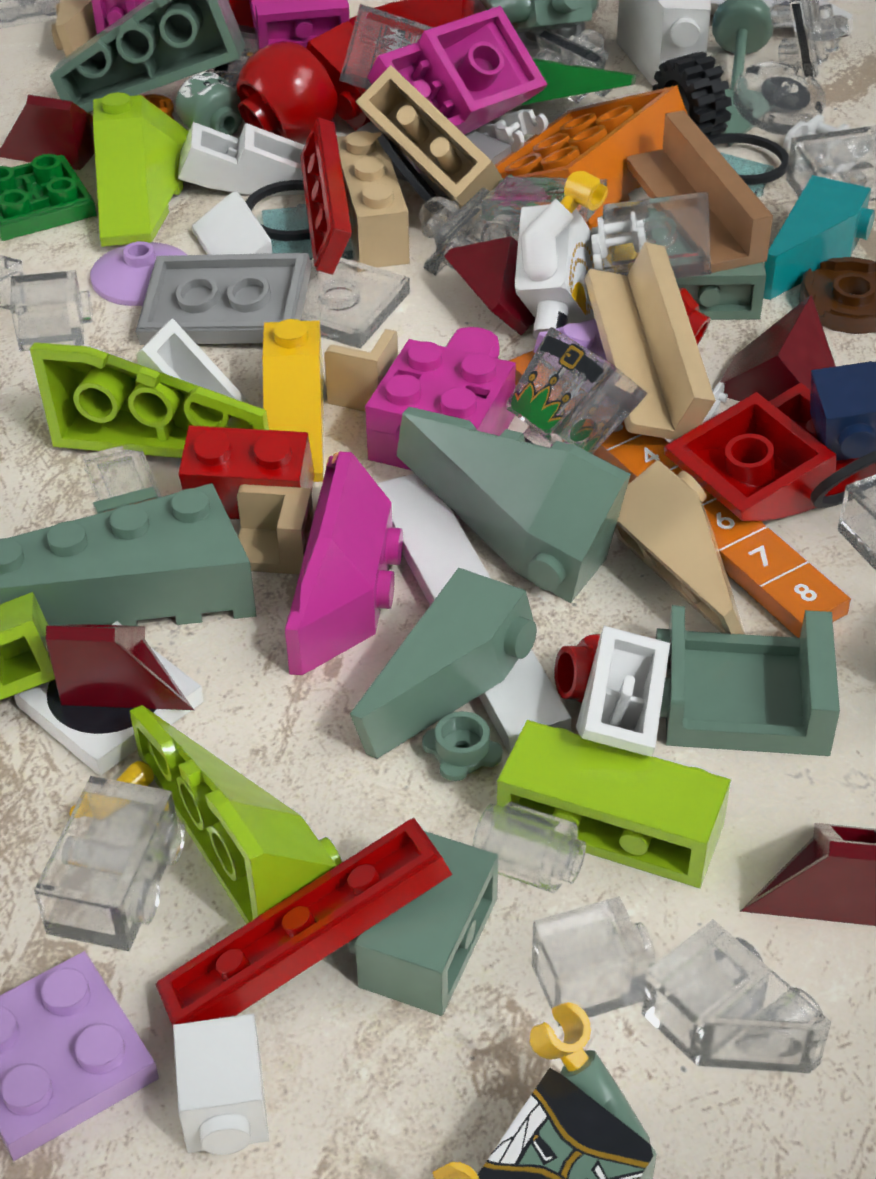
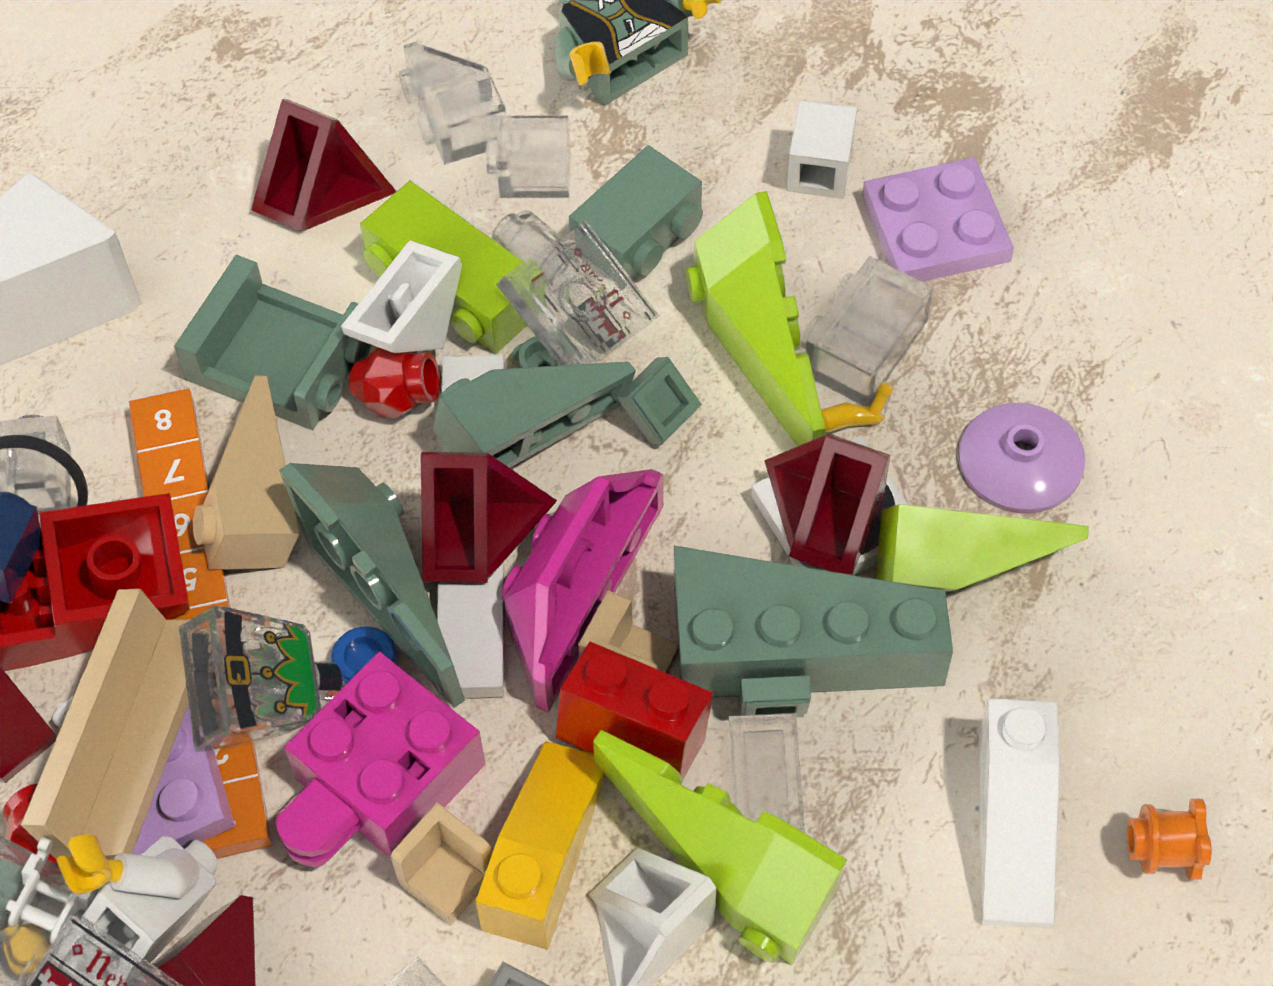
camera: 160 degrees left, 15 degrees up
(304, 927) = (689, 206): red tile -> none
(320, 731) = (659, 400): none -> sand green tile
(448, 774) = (577, 298): none -> clear tile
(476, 548) = (473, 515): none -> dark red slope

